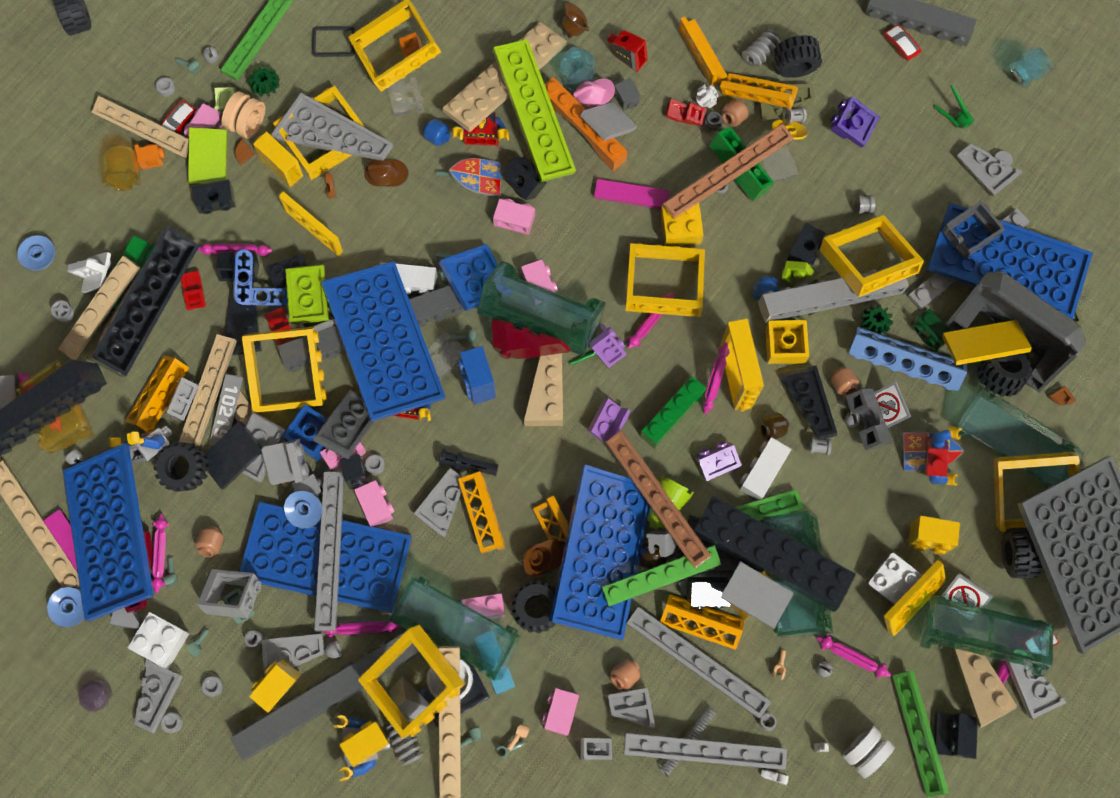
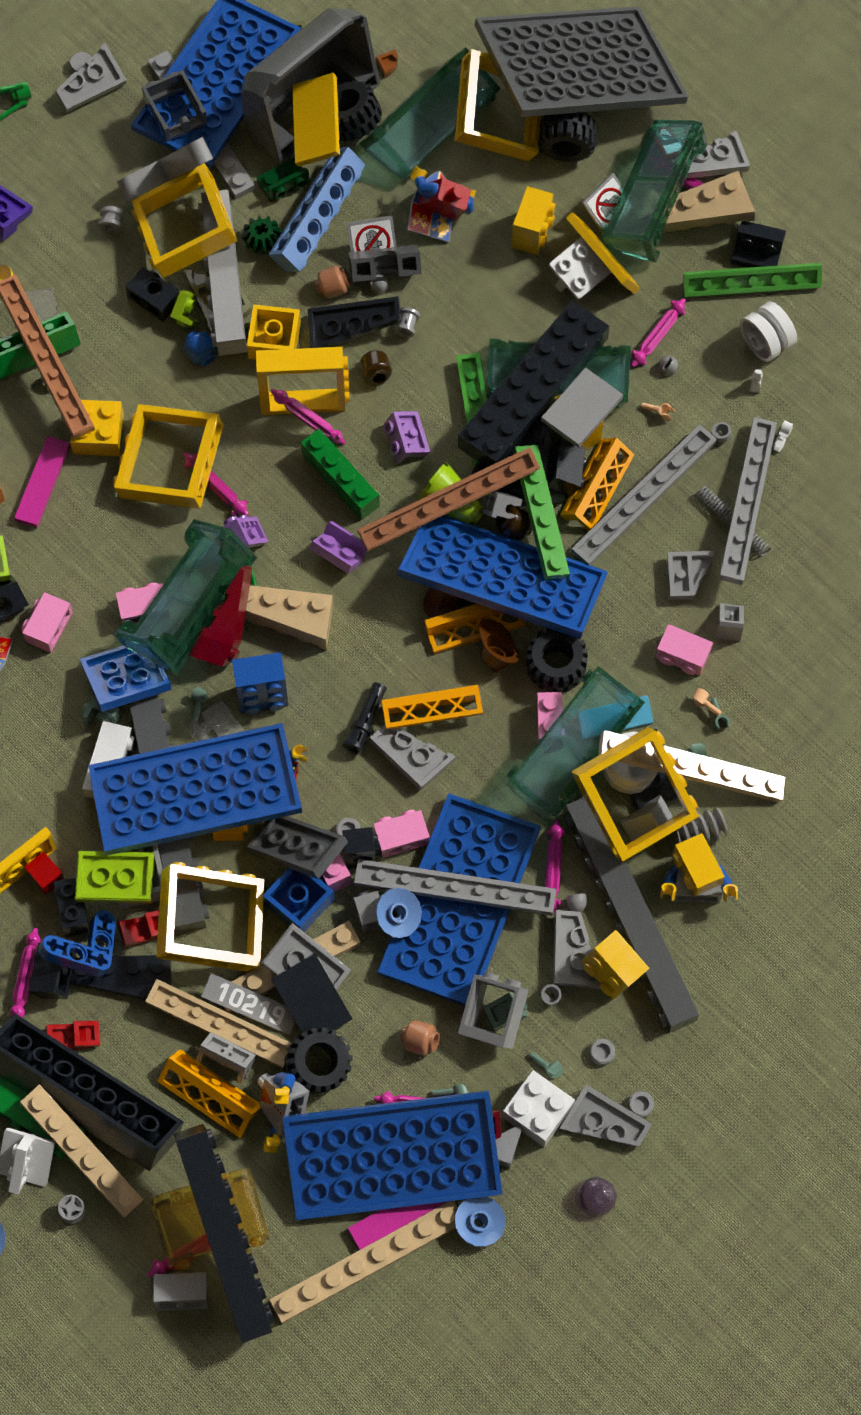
camera: 80 degrees left, 5 degrees down
(74, 456) = (279, 1205): light grey hinge -> none
(285, 462) = (336, 924): light grey bracket -> none
(314, 248) = (44, 872): none -> red panel
(625, 674) = (648, 574): nougat head -> none
(764, 468) = (426, 386): white brick -> none
(918, 238) = (165, 169): none -> light grey beam

